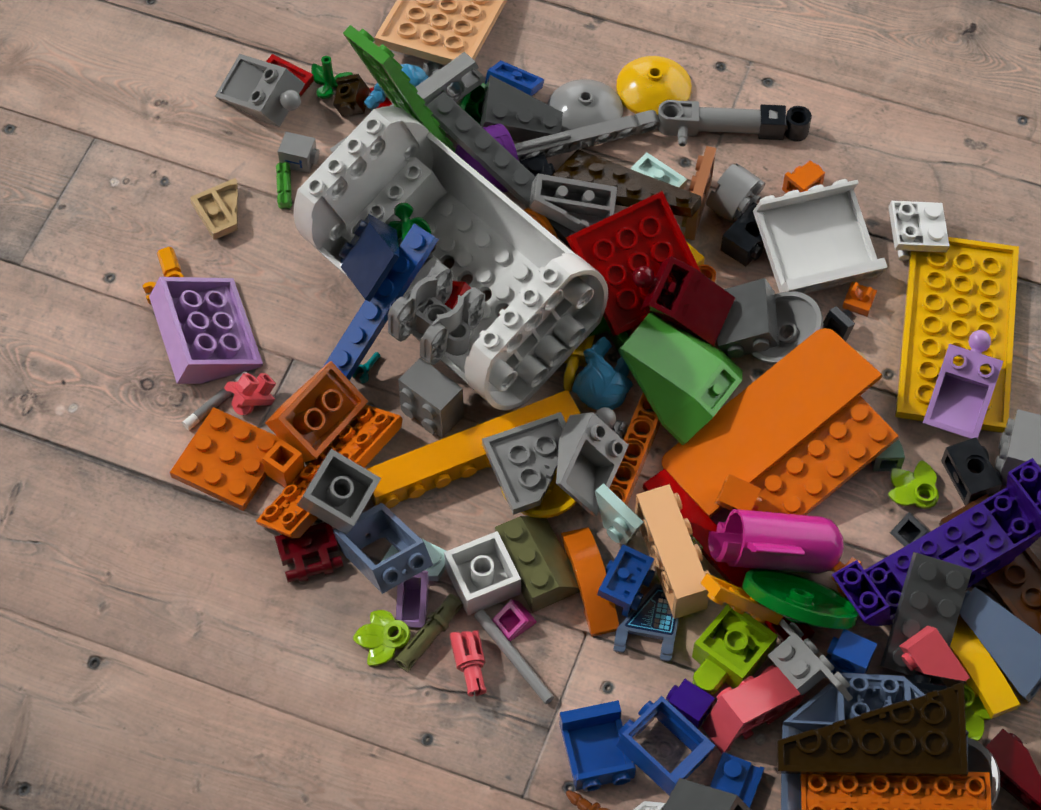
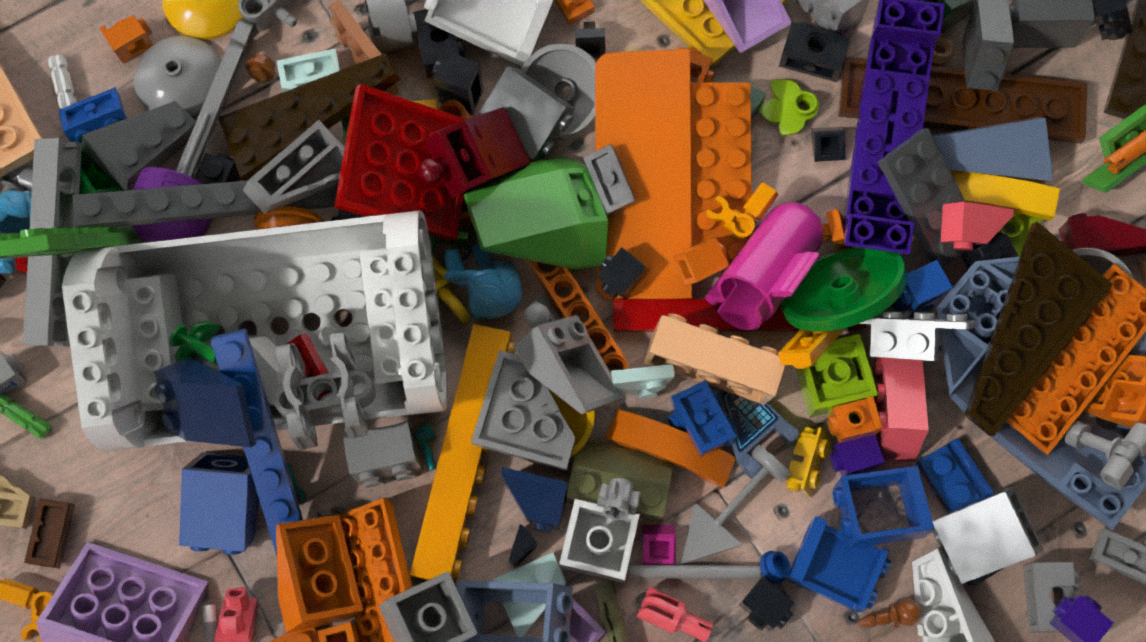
camera: 50 degrees left, 15 degrees up
(221, 253) = (49, 533): none -> reddish brown plate
(314, 328) = (218, 504): none -> blue slope
(438, 529) = (522, 547): none -> black slope
(466, 419) = (424, 436): none -> teal hand
(480, 509) = (538, 498): none -> dark blue slope
(518, 552) = (618, 499): none -> light grey gear
(522, 48) = (61, 80): none -> white axle
(527, 716) = (767, 606): none -> black brick
(548, 647) = (706, 534): none -> light grey piece
(559, 701) = (774, 566): none -> blue plate
(584, 62) = (128, 37): none -> orange brick
(633, 148) = (260, 68): none -> dark orange plate
(649, 682) = (813, 449): none -> yellow hinge
(685, 456) = (621, 273): none -> black brick
(708, 682) = (868, 418): none -> orange brick
(730, 261) = (458, 80): none -> black brick
(744, 399) = (610, 179): none -> flat silver plate
(809, 505) = (741, 224): none -> light orange bar
(885, 399) = (700, 66): none -> orange bracket

